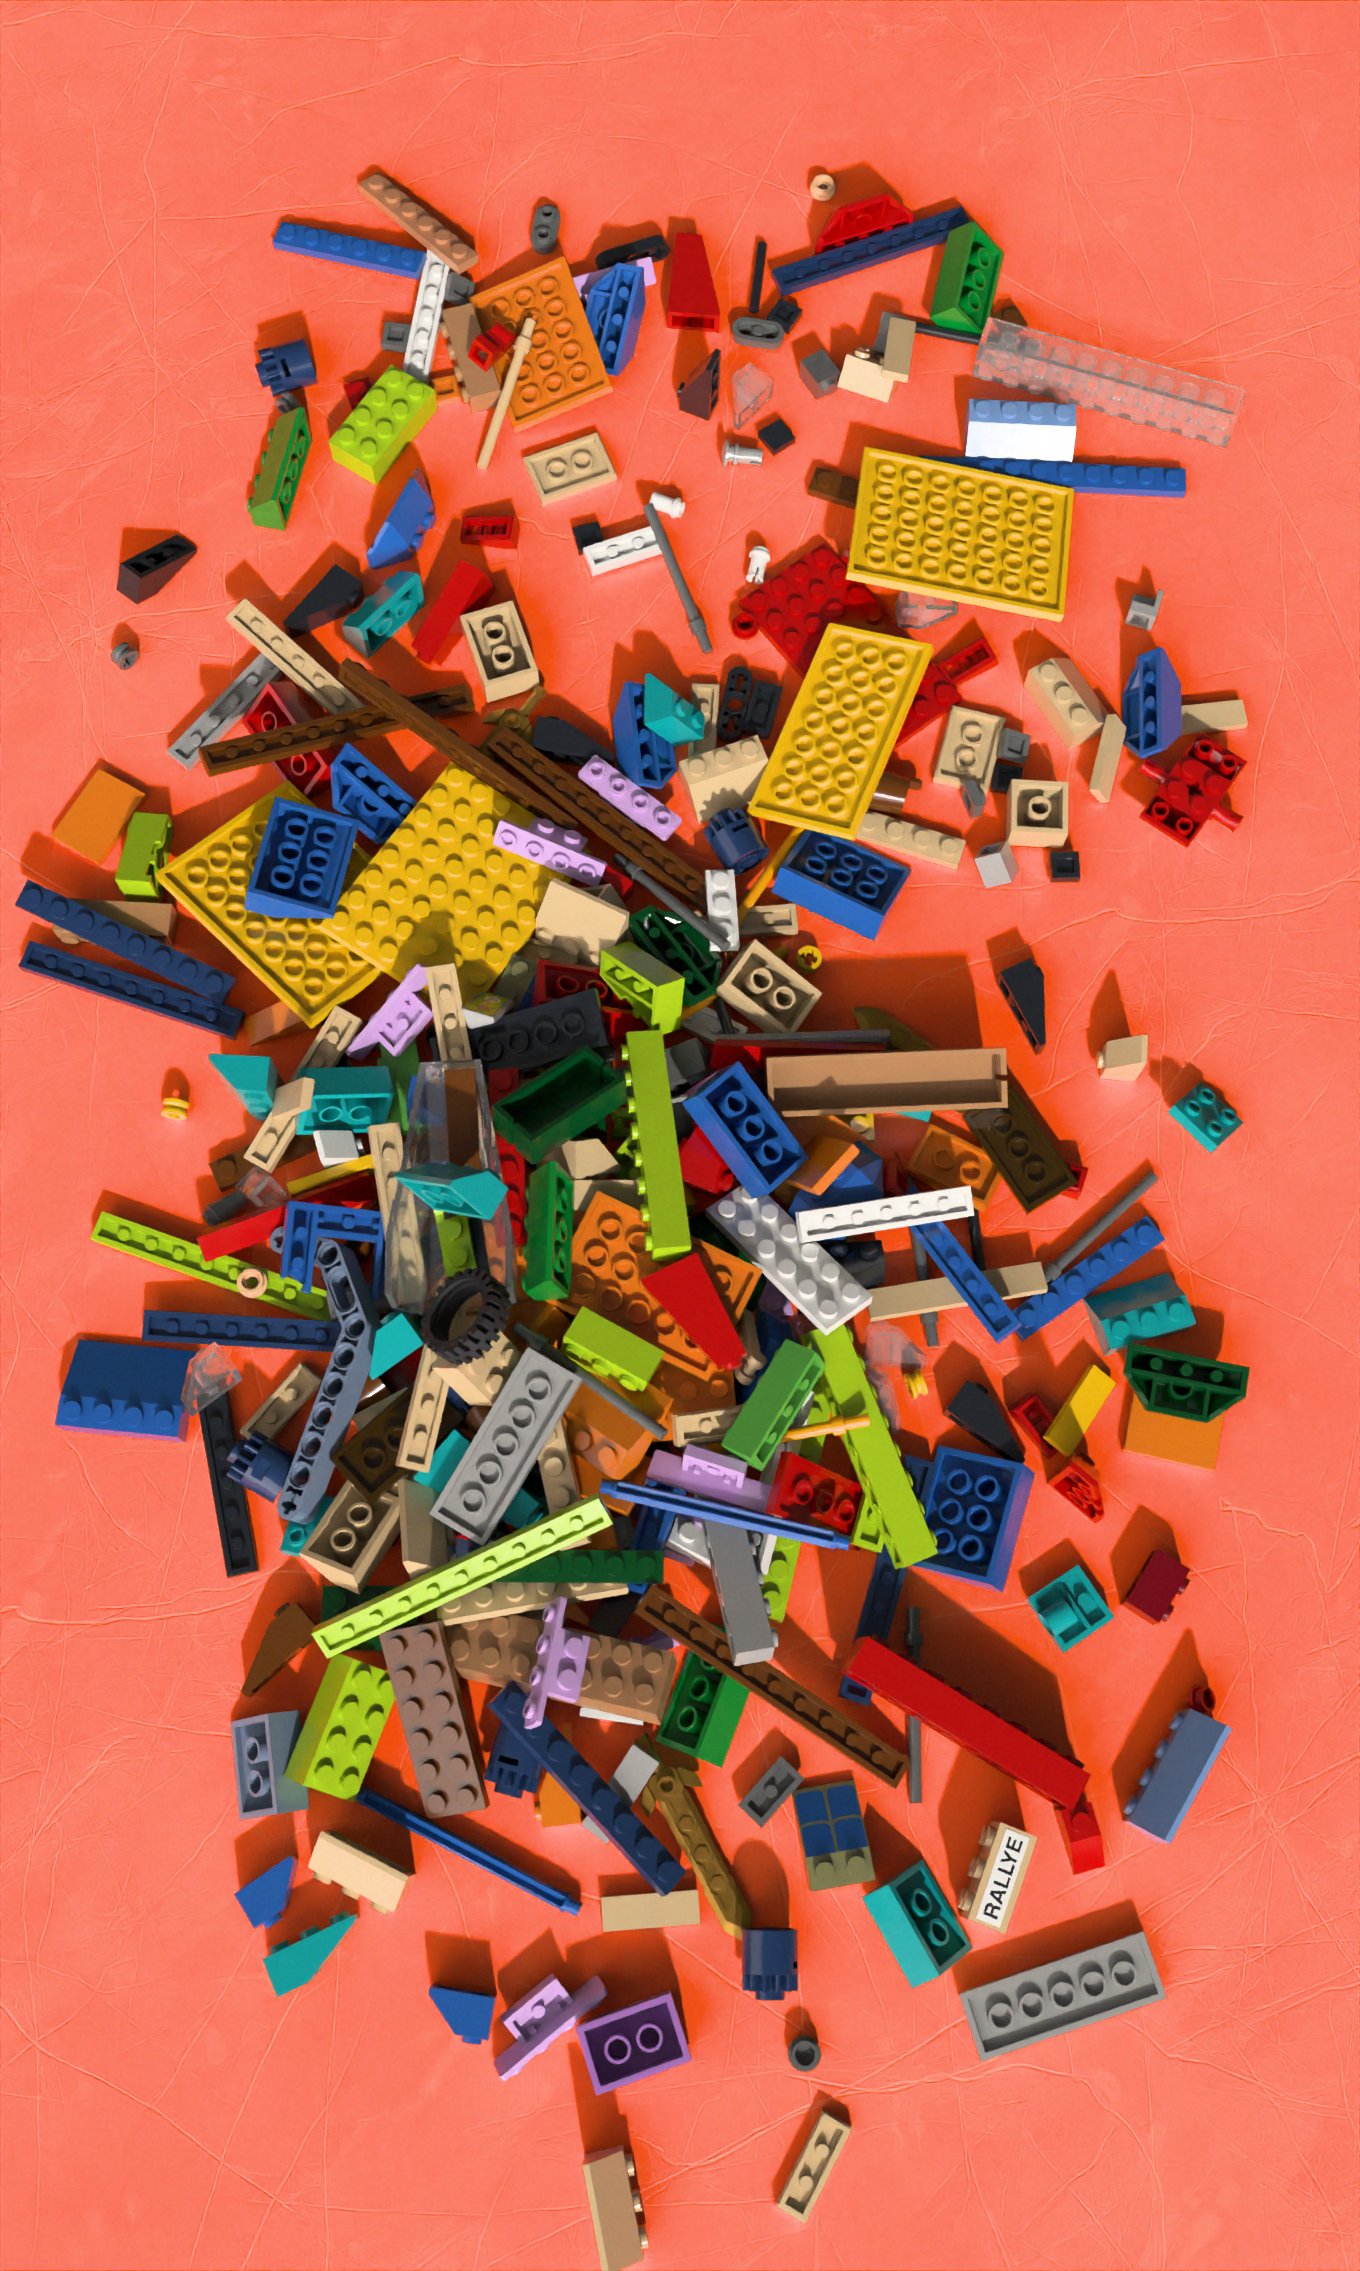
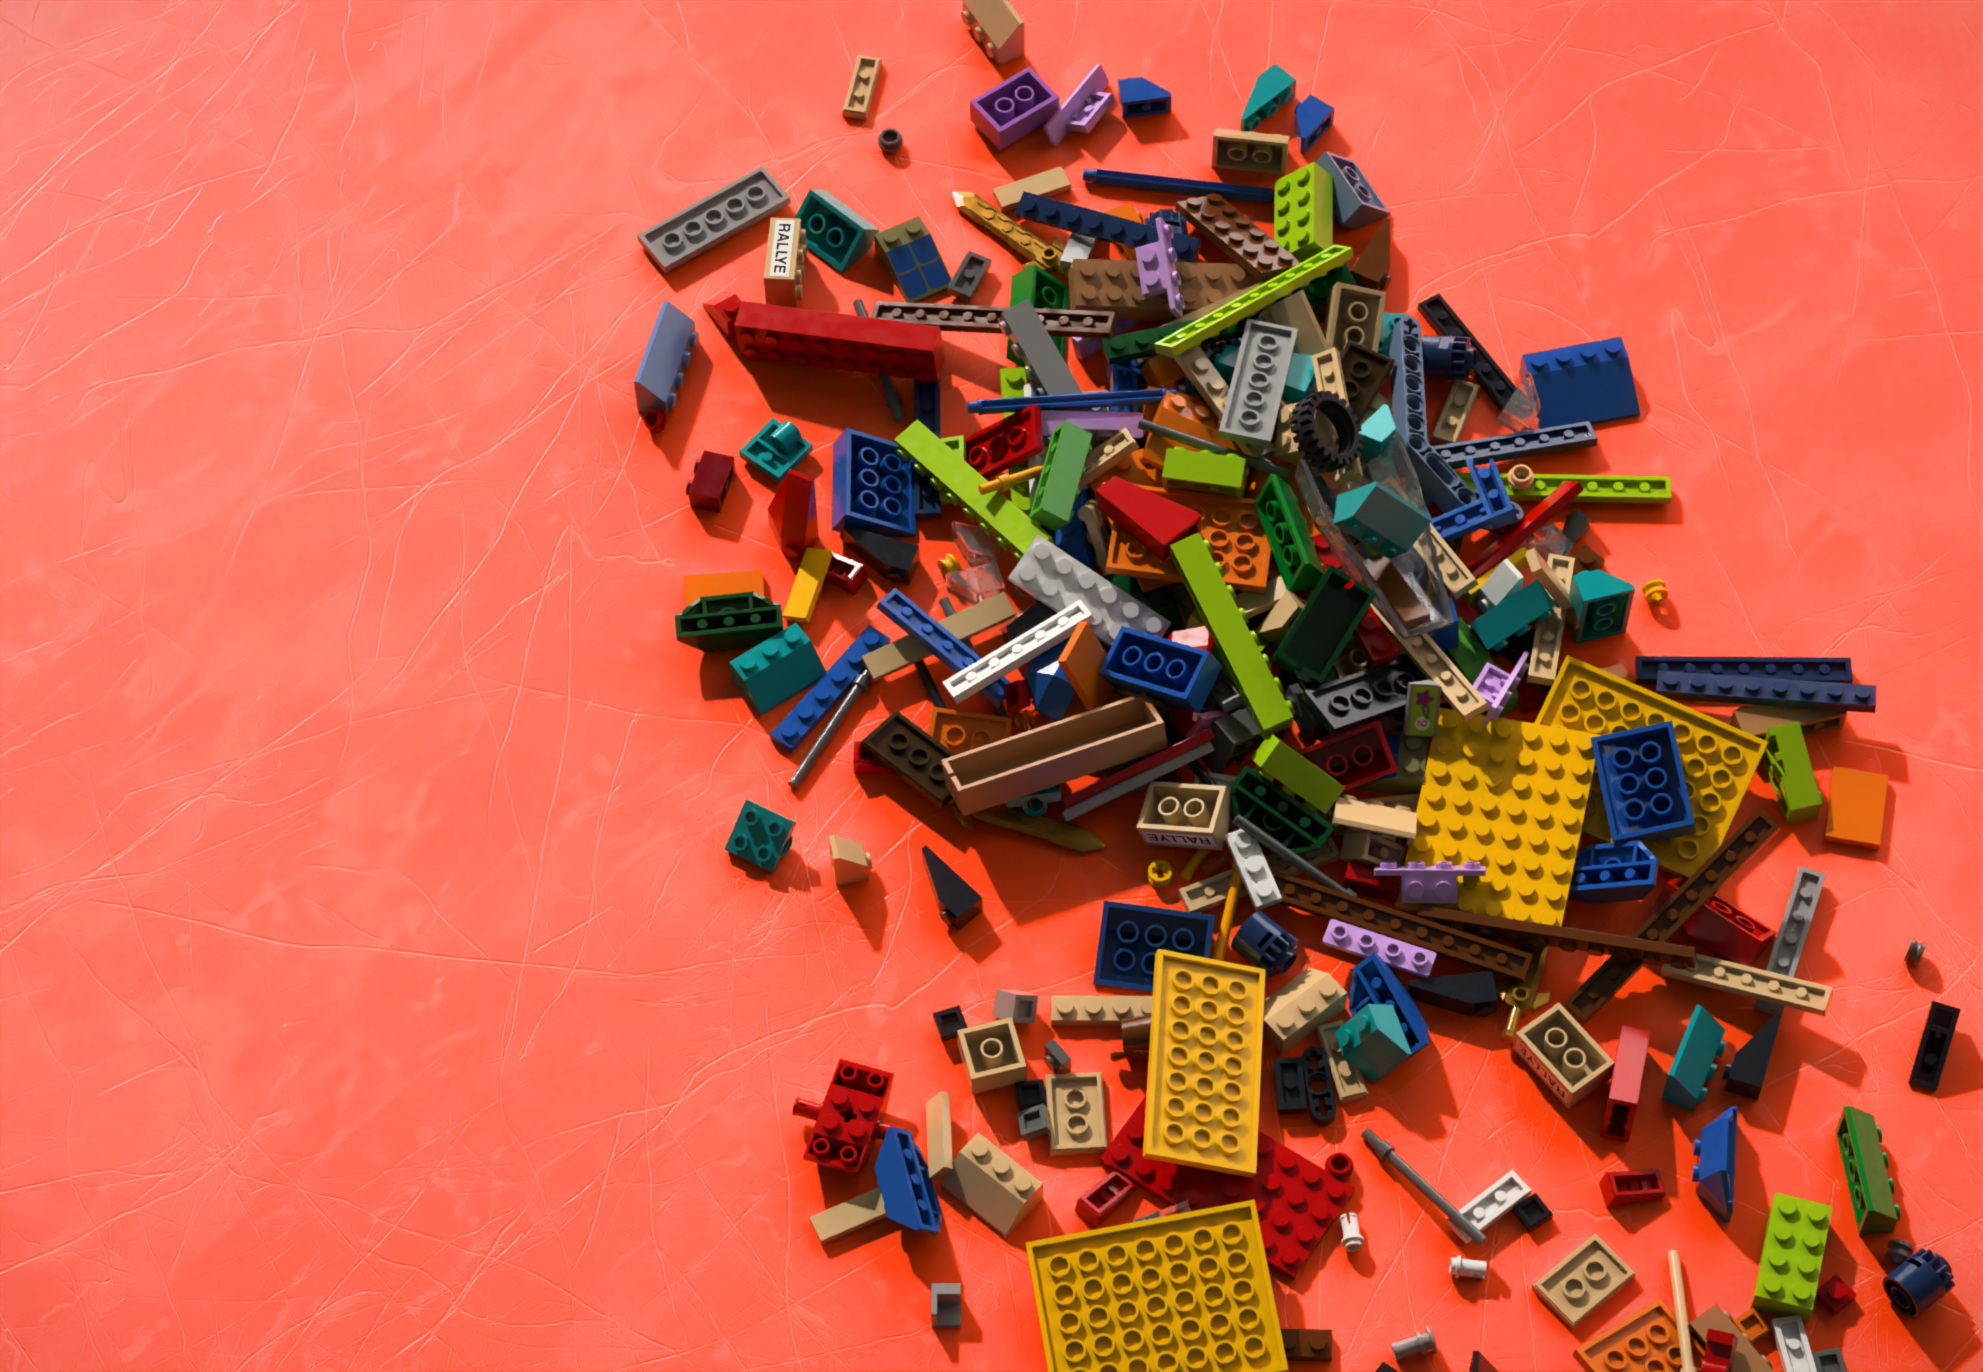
camera: 165 degrees right, 15 degrees down
(770, 1961) = (935, 177): dark blue gear -> none

